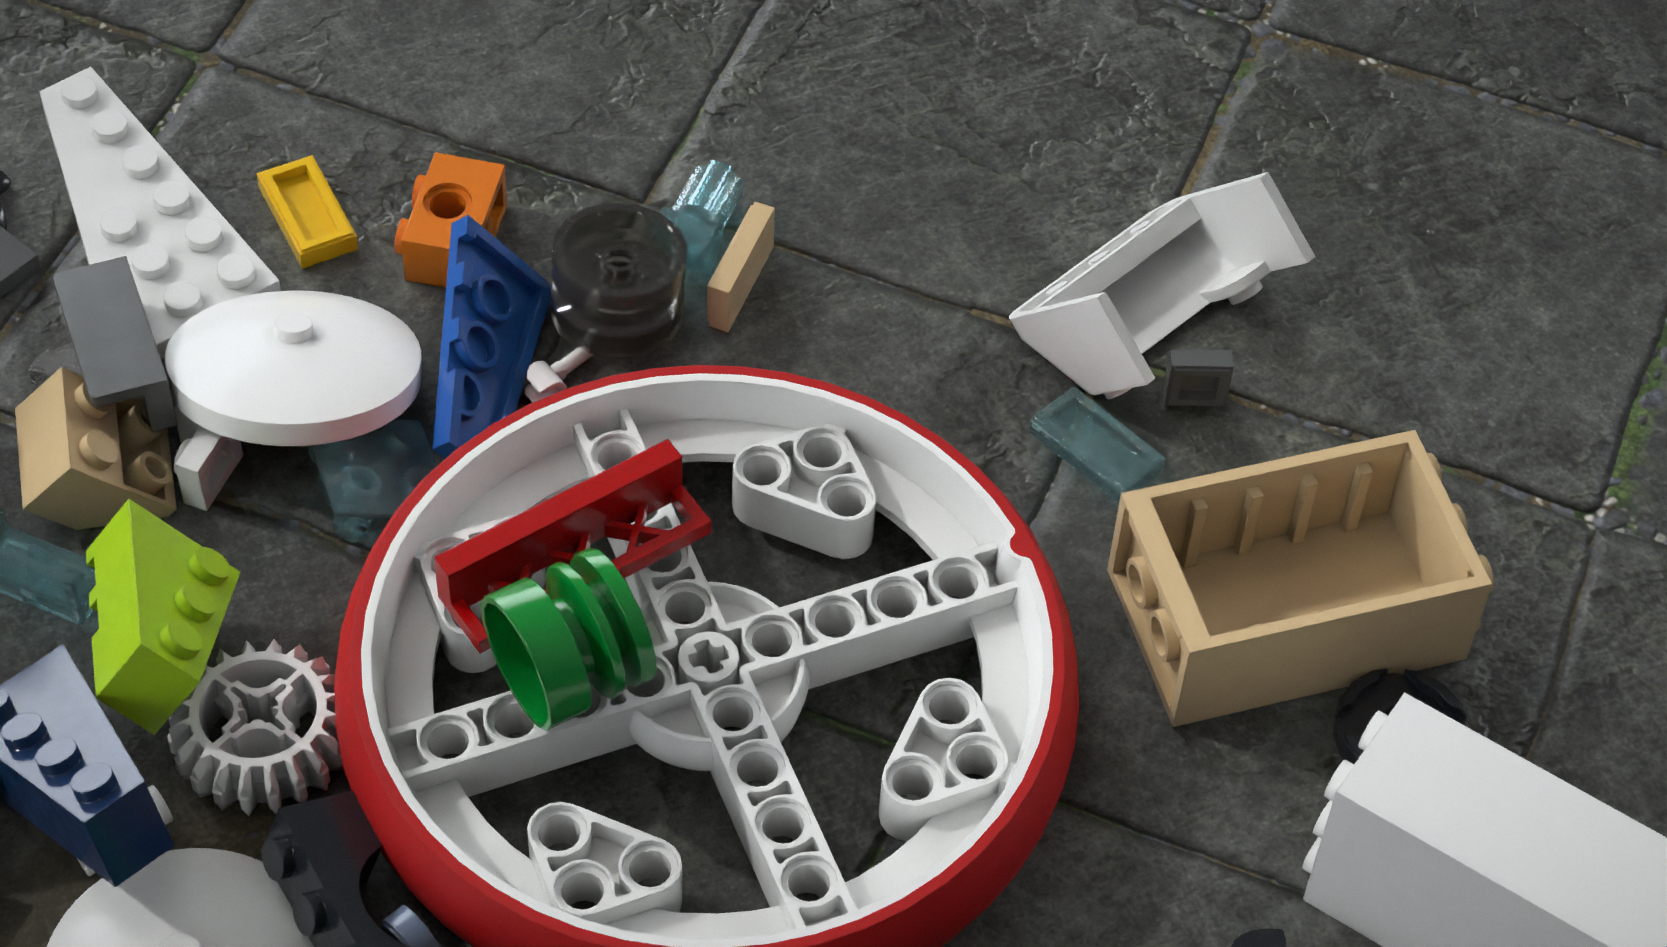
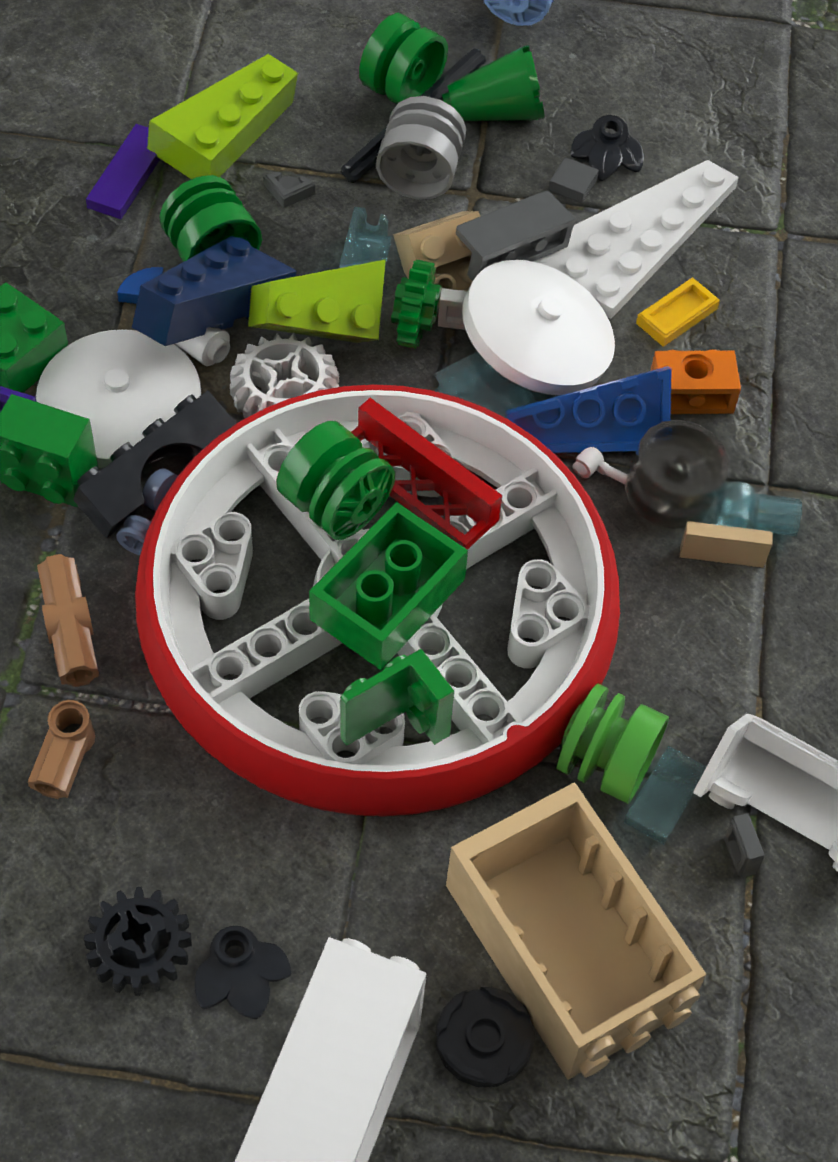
camera: 75 degrees right, 5 degrees up
(197, 499) = (416, 304): none -> green gear
(766, 621) = (387, 585): none -> green brick
(968, 626) = (405, 685): none -> green bracket
(1047, 452) = (612, 743): none -> bright green wheel

